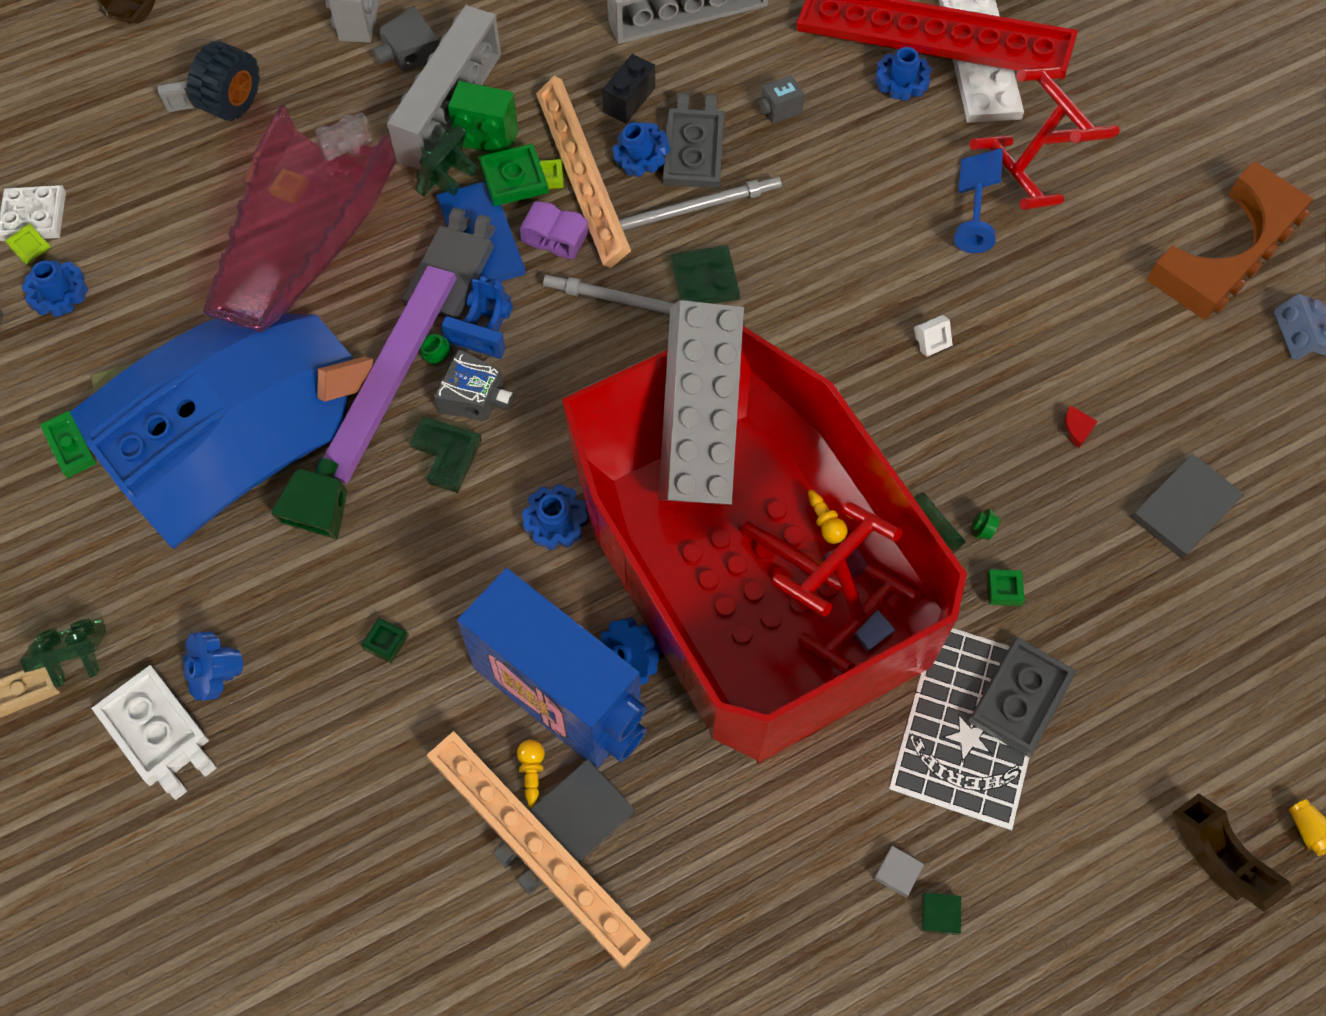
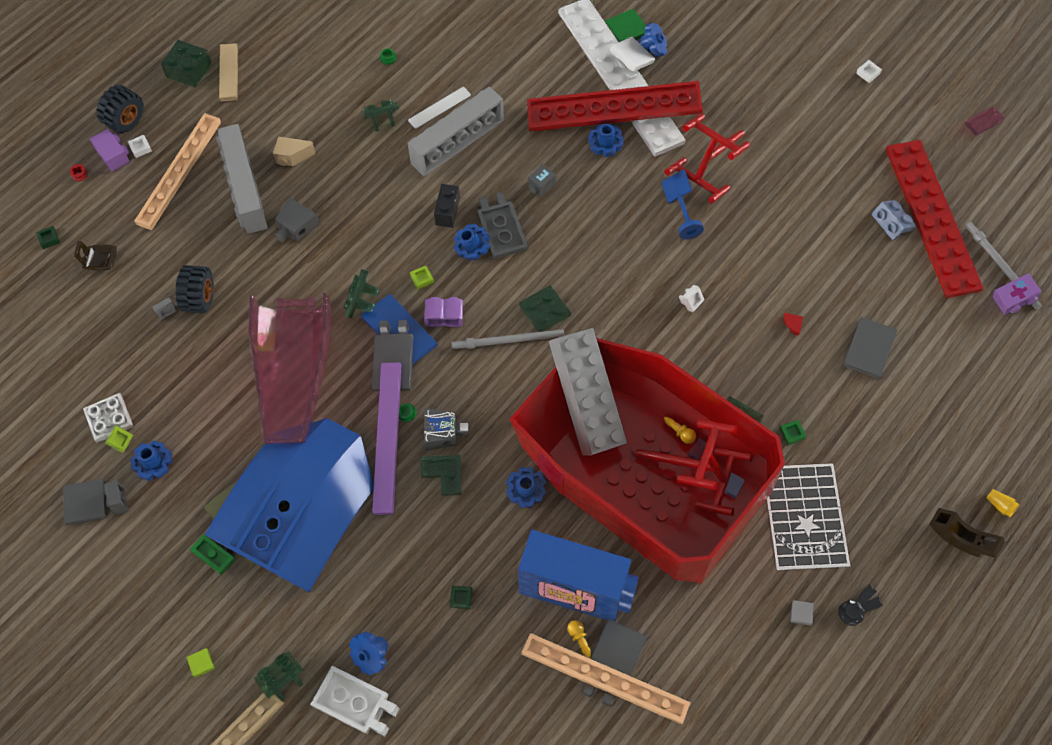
camera: 20 degrees left, 0 degrees up
(313, 501) = (381, 531): dark green torso -> none
(343, 136) = (290, 299): clear hips -> none
(343, 378) = (365, 451): nougat tile -> none
(463, 55) = (335, 244): light grey brick -> none
(485, 115) = (370, 255): green brick -> none
(487, 300) = (426, 371): blue tile -> none
(513, 174) = (402, 286): green tile -> none
(583, 173) = (443, 269): light nougat plate -> none
(634, 645) = (607, 542): blue plant -> none
(751, 190) = (548, 244): light grey bar -> none
(941, 913) = (832, 626): dark green tile -> none
(983, 904) = (853, 612): none -> black piece
(985, 524) = (767, 400): green plate -> none
(1022, 696) = (826, 490): dark grey tile -> none
(1207, 282) = (829, 211): dark orange arch -> none

